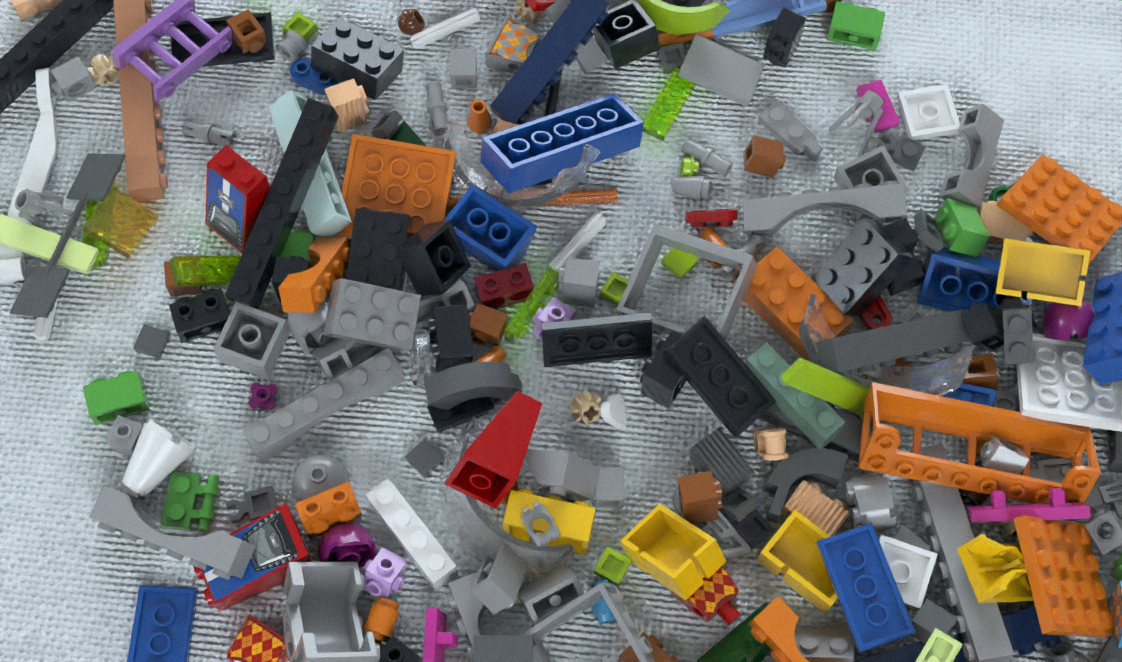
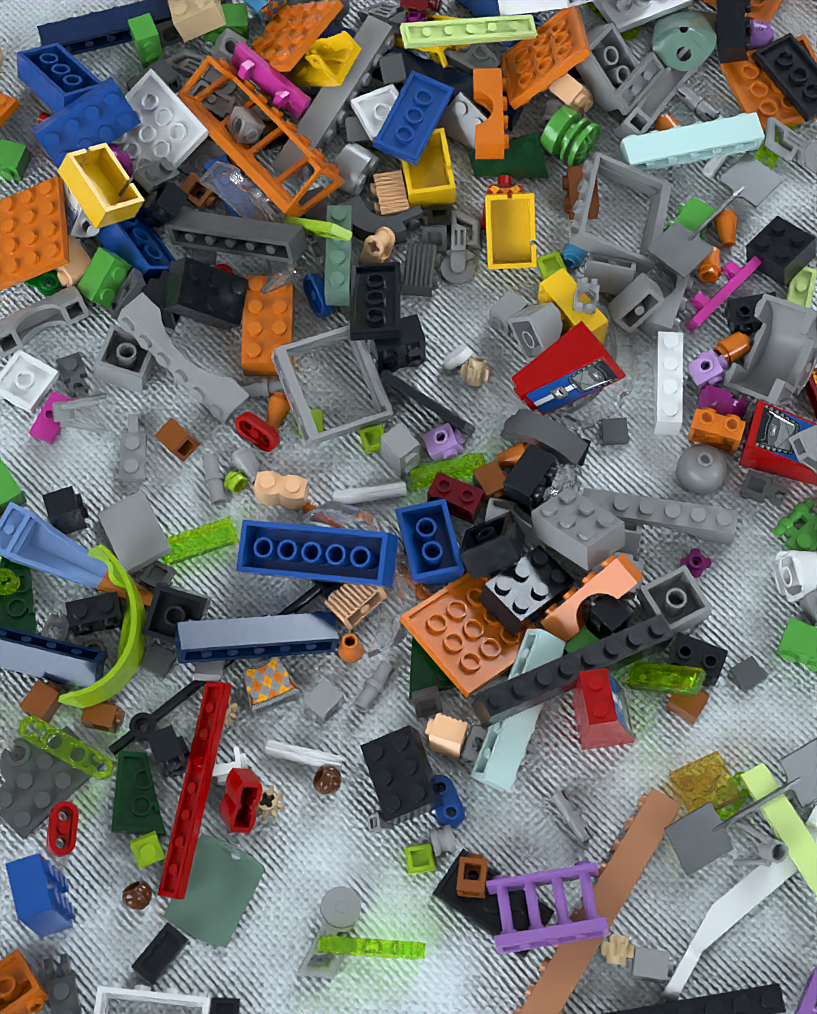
camera: 135 degrees left, 0 degrees up
(645, 185) = (275, 490): none -> light nougat brick
(699, 497) = (463, 245): dark orange brick -> none

